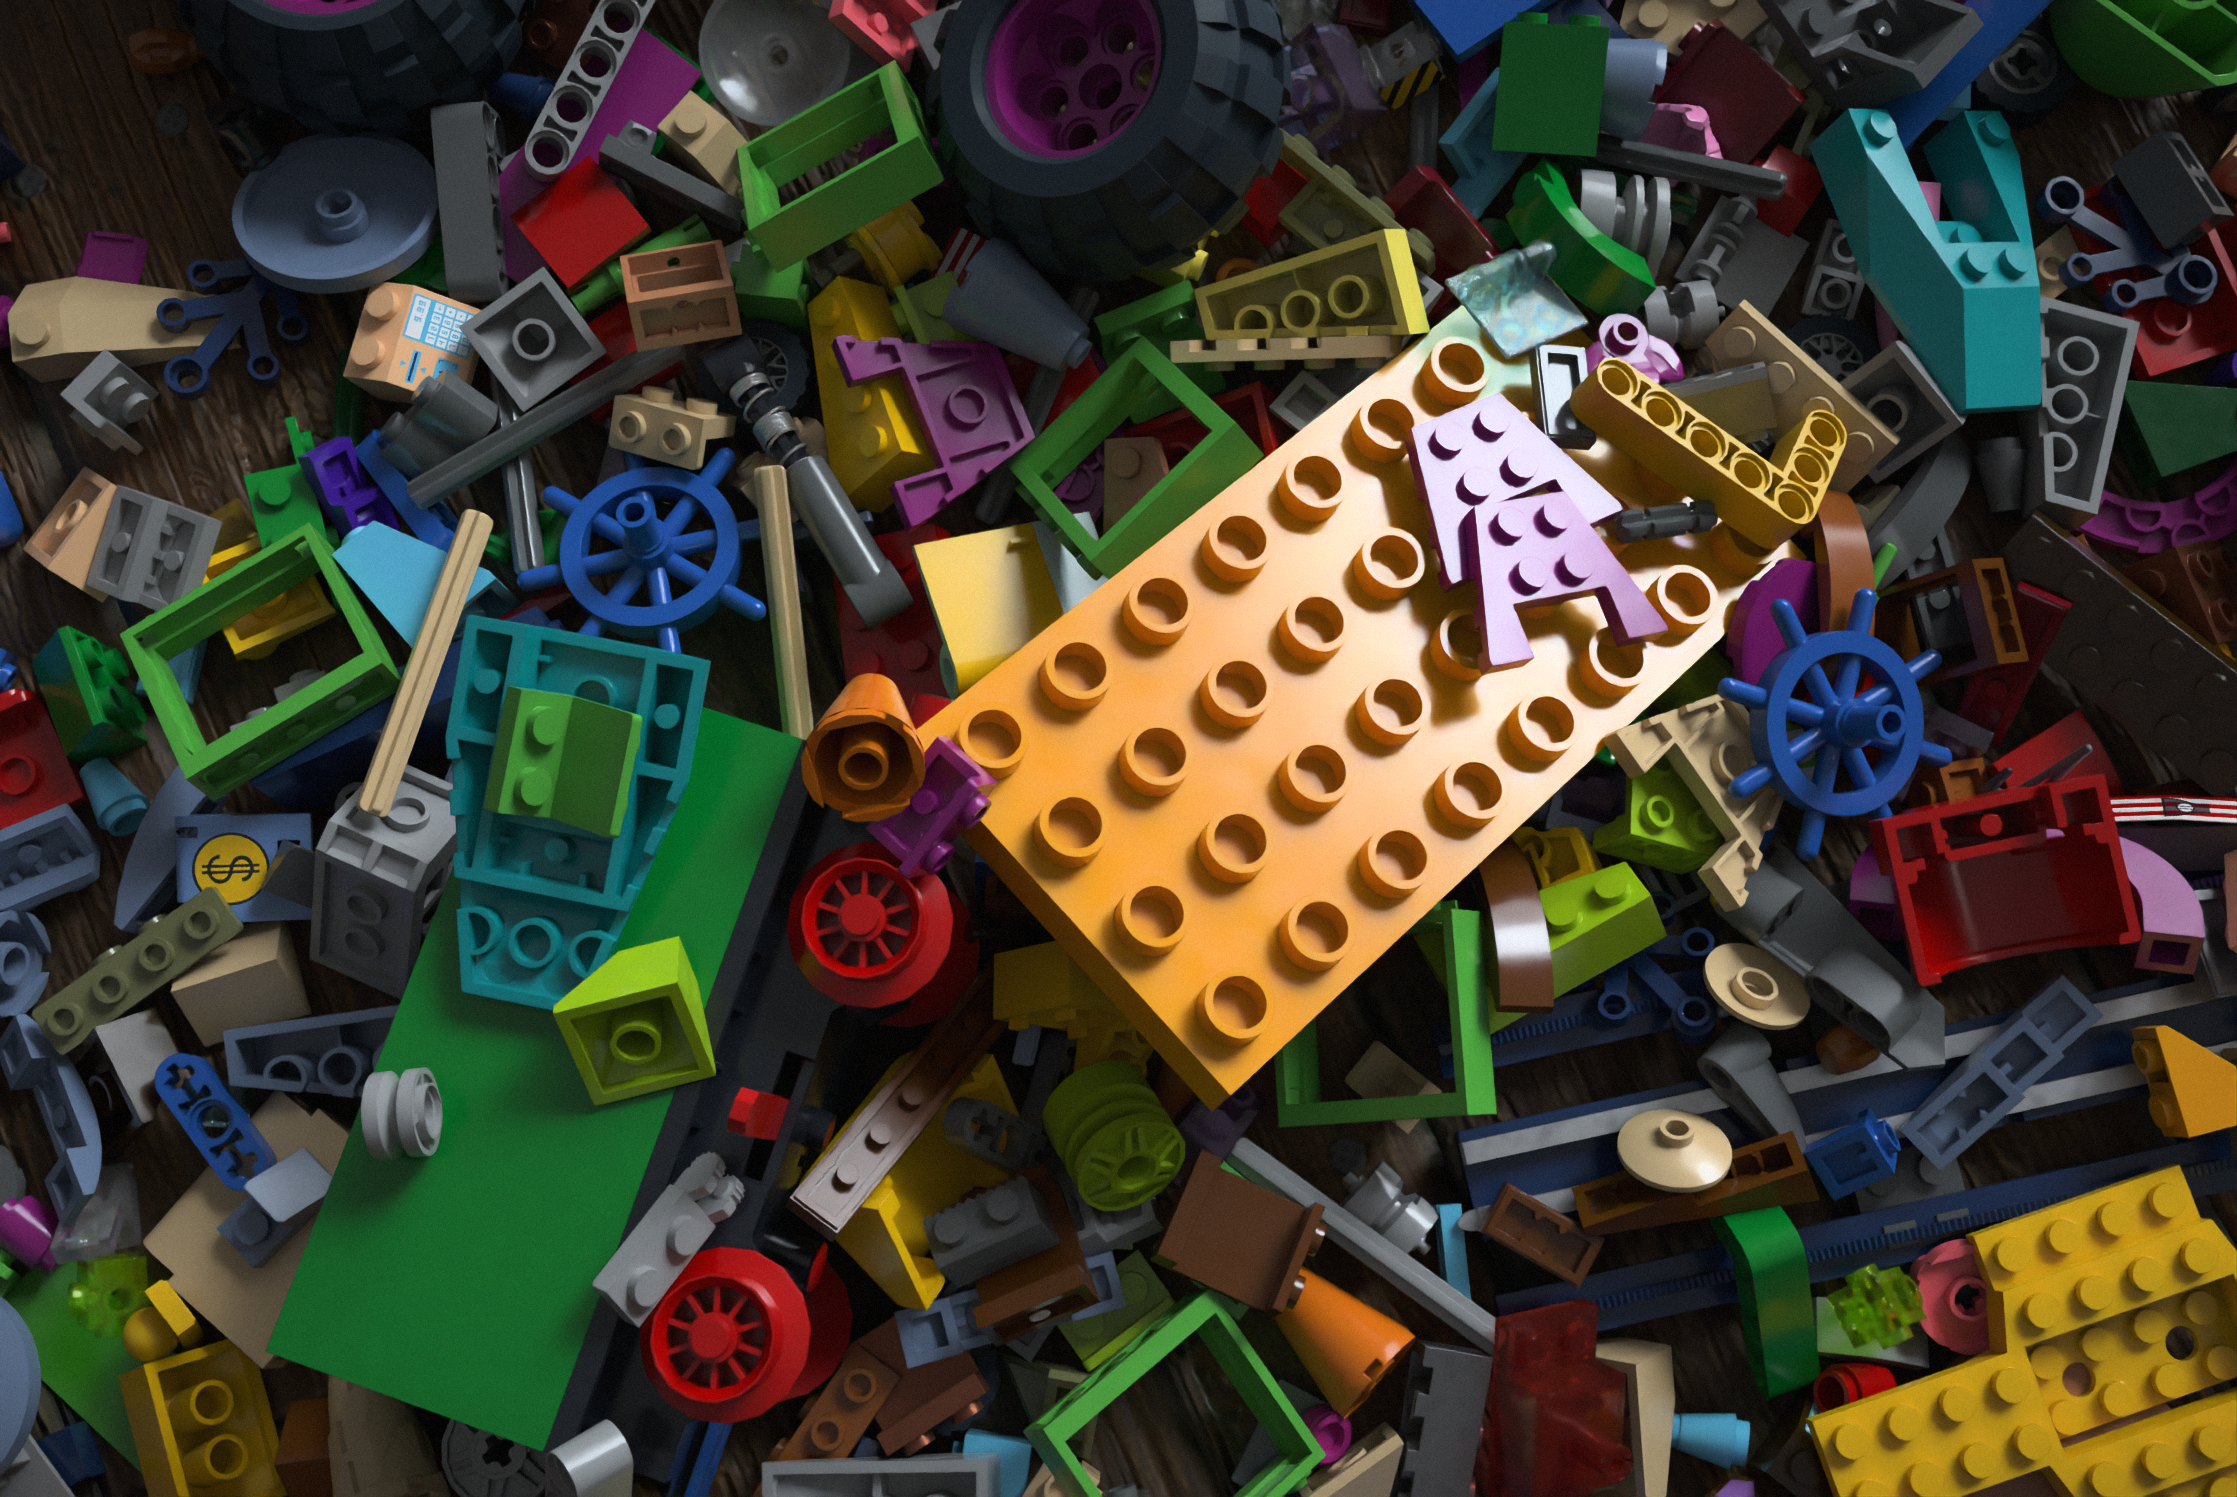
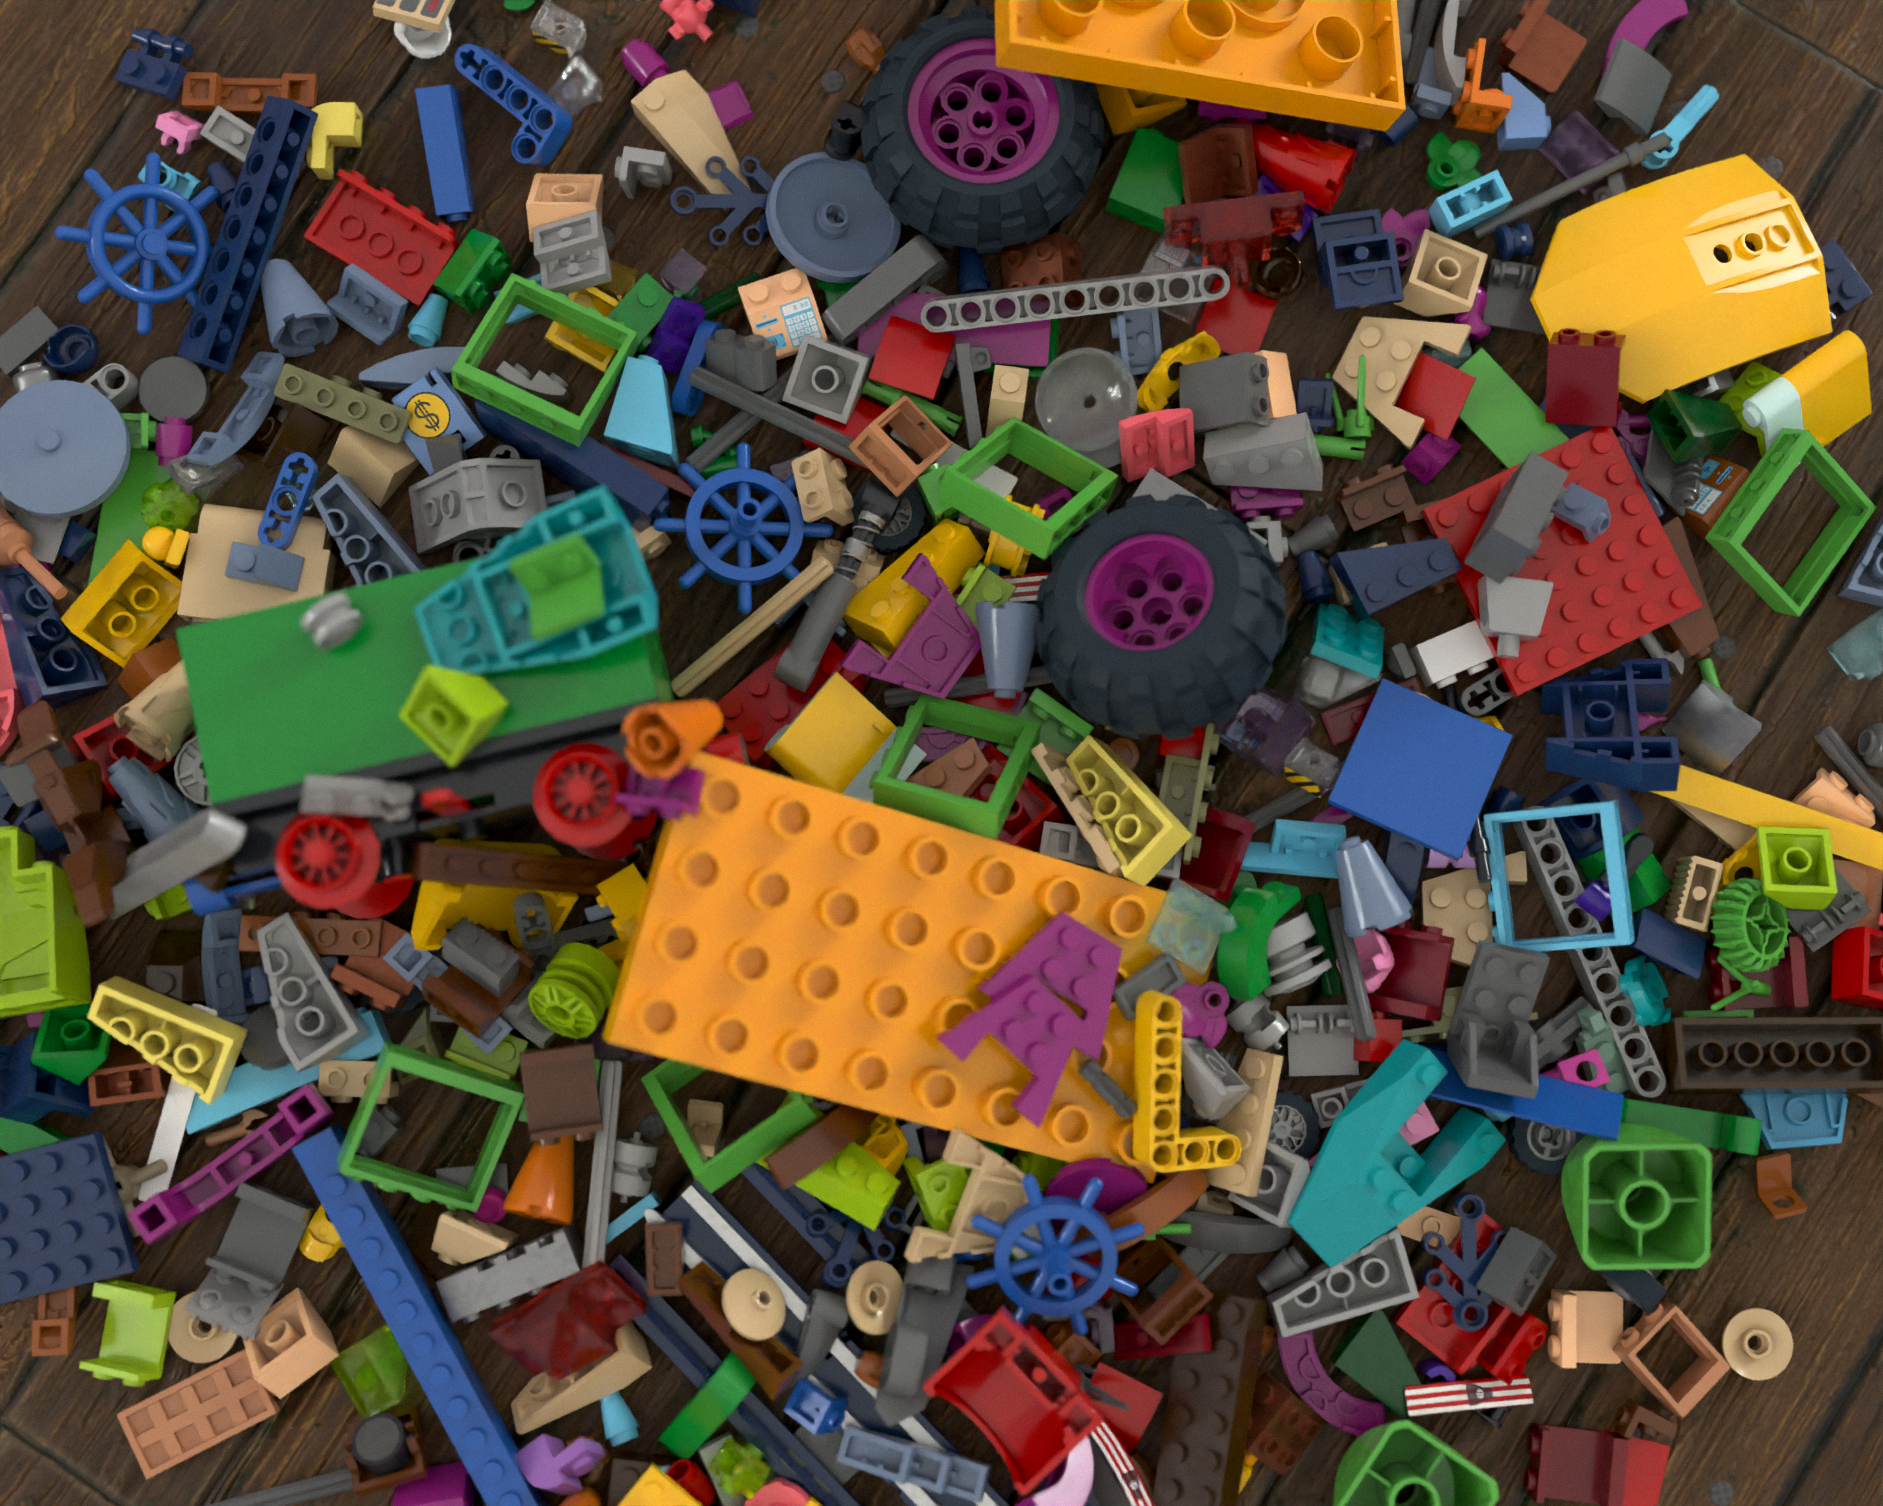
camera: 50 degrees right, 5 degrees up
(276, 433) = (682, 272): none -> clear purple bracket
(424, 664) = (597, 450): tan axle -> none
(1550, 85) = (1340, 865): green panel -> none

